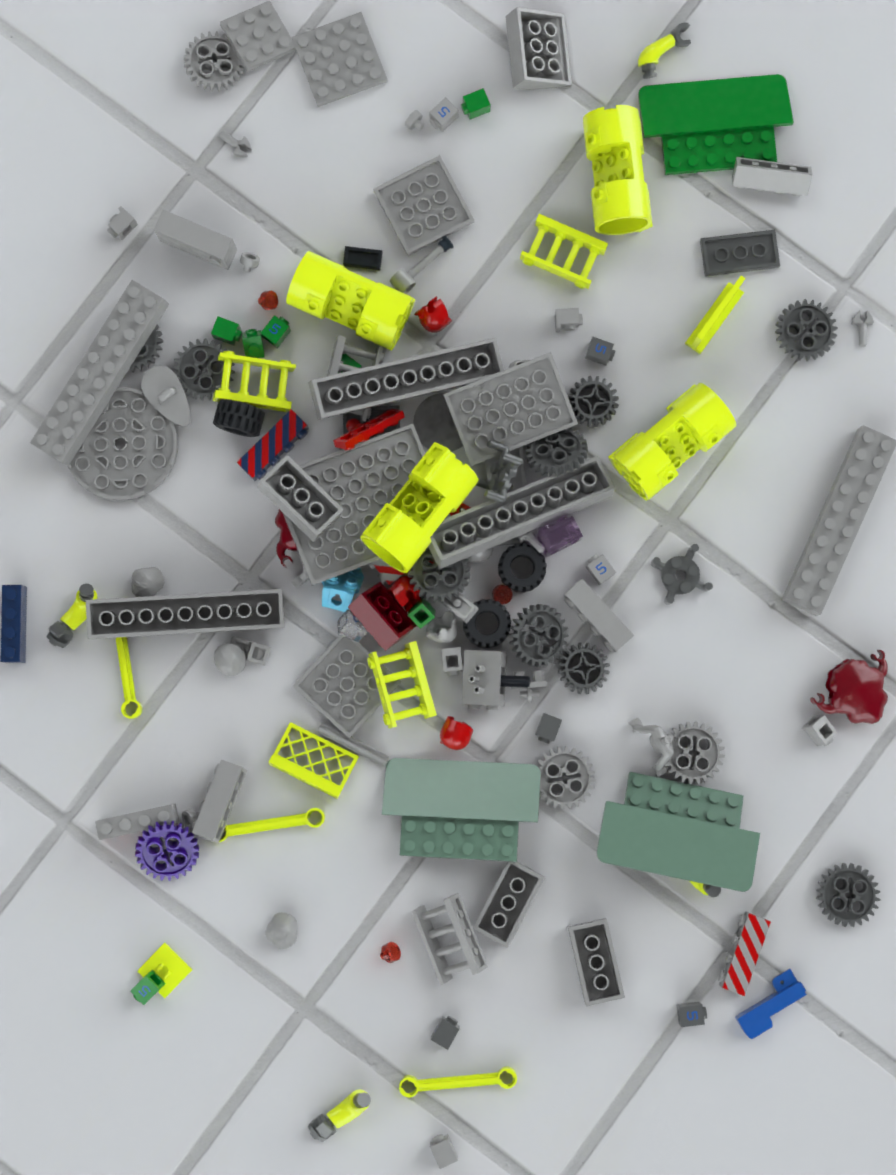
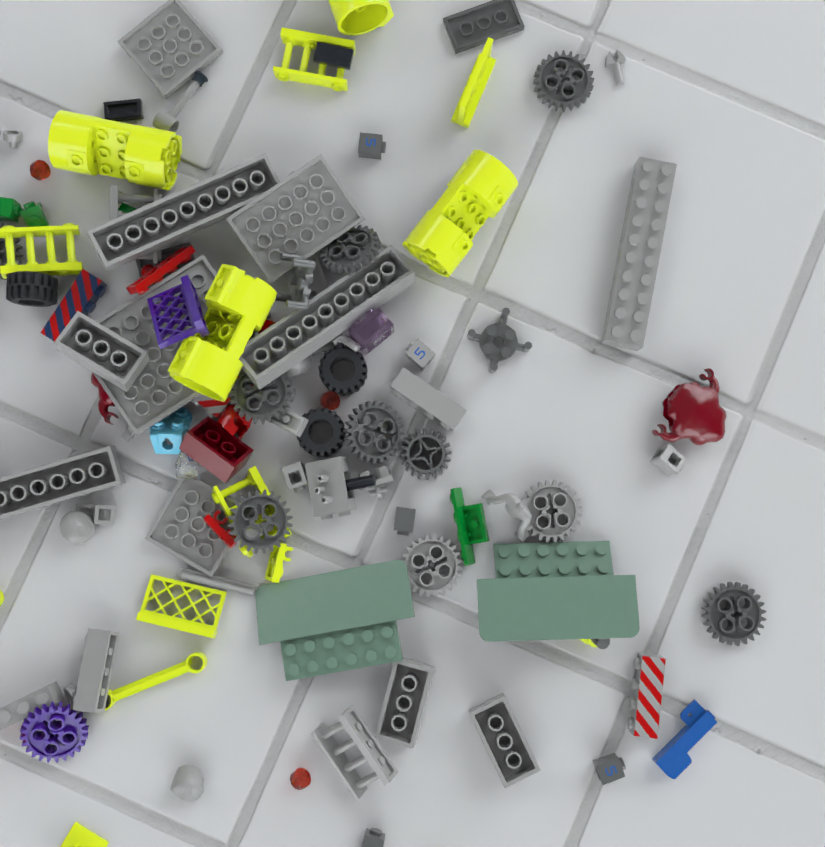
camera: 15 degrees left, 0 degrees up
(276, 331) = (53, 198): green brick -> none
(373, 703) = (216, 525): none -> red plate
(393, 465) = (190, 308): none -> dark purple fence
(393, 693) = (278, 519): none -> dark grey gear
(413, 739) = (275, 564): none -> neon yellow plate
(422, 613) = (255, 437): green brick -> none
(434, 316) = (203, 148): red helmet -> none
(436, 424) = (228, 249): flat silver sticker -> none
(442, 628) = (279, 448): light grey hair -> none
(455, 734) = (315, 548): red helmet -> none
(567, 319) = (333, 122): light grey brick -> none
(583, 253) = (333, 55): none -> black tile
(595, 385) = (383, 194): dark grey gear -> none
(611, 747) = (470, 525): none -> green bracket

